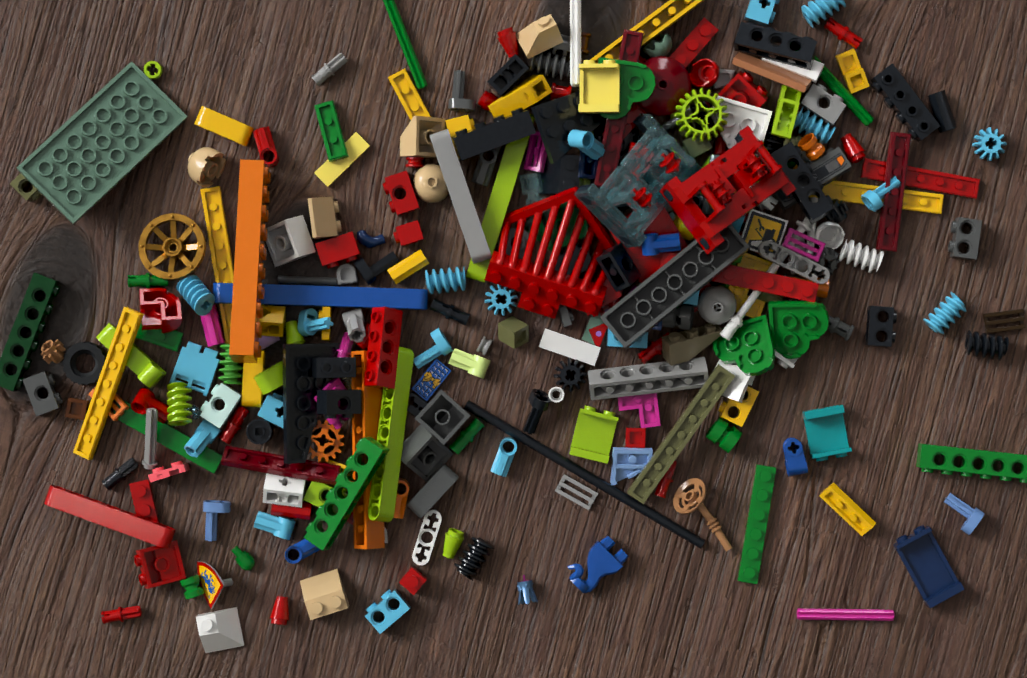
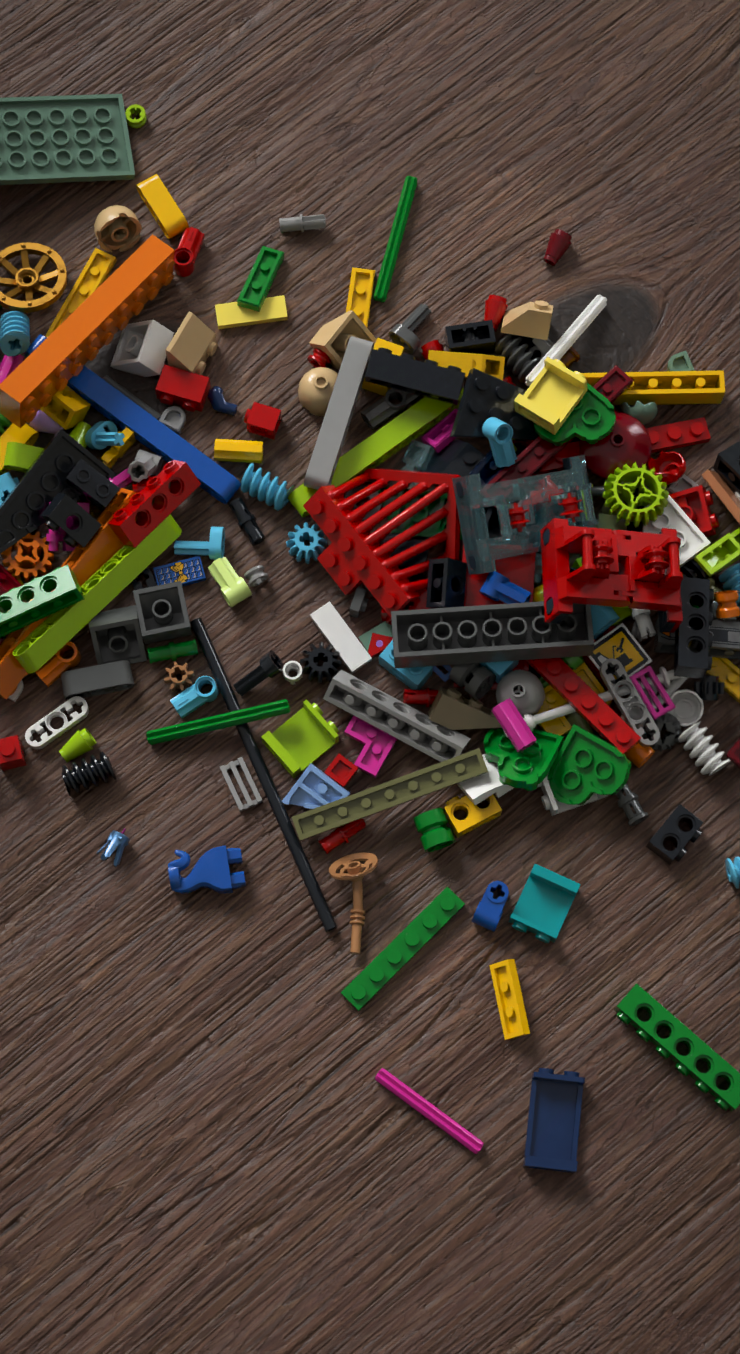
camera: 35 degrees right, 15 degrees down
(369, 273) = (196, 431): black piece -> none
(401, 181) = (284, 365): red brick -> none
(485, 456) = (178, 669): none -> medium nougat gear
(513, 332) = (295, 583): olive panel -> none
(533, 463) = (218, 722): none -> green axle
(731, 333) = (514, 725): none -> dark pink axle
(973, 515) = (639, 1101): medium blue piece -> none

